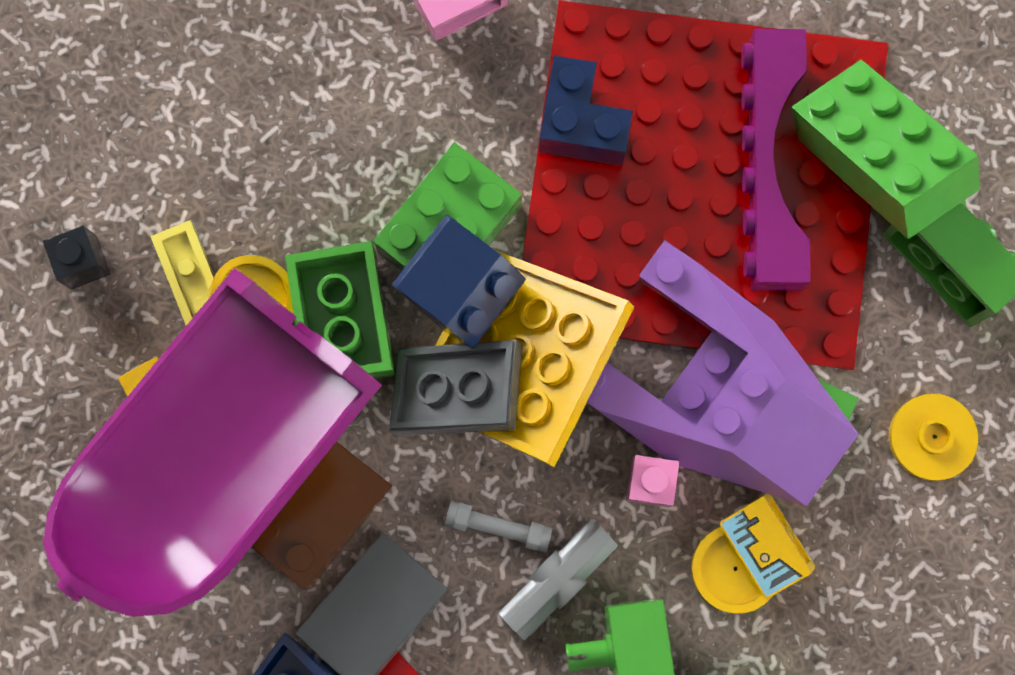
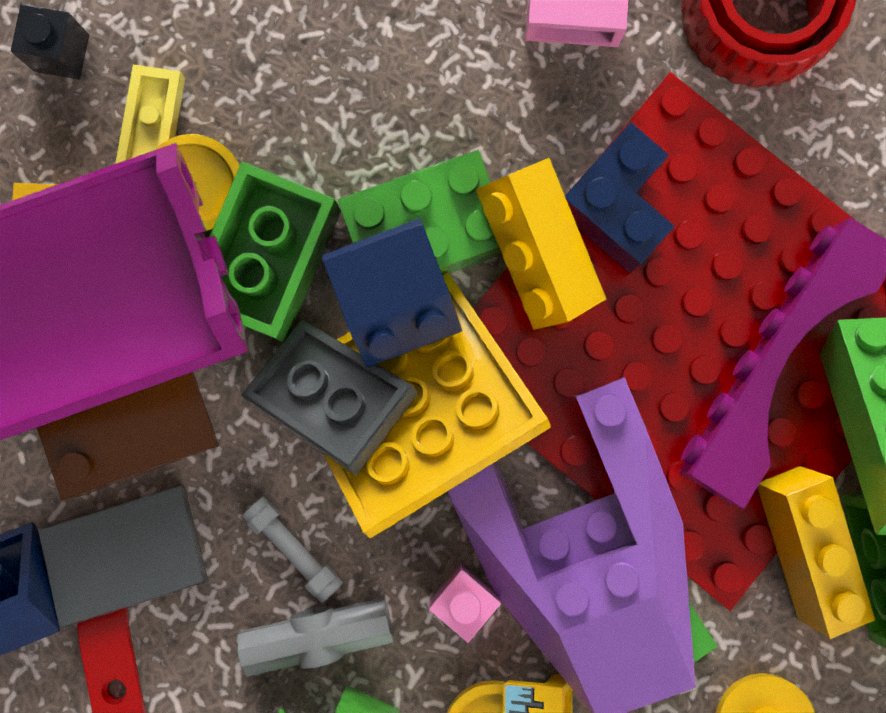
camera: 30 degrees right, 5 degrees up
(544, 182) = (541, 245): none -> yellow brick
(883, 283) = (816, 551): none -> yellow brick

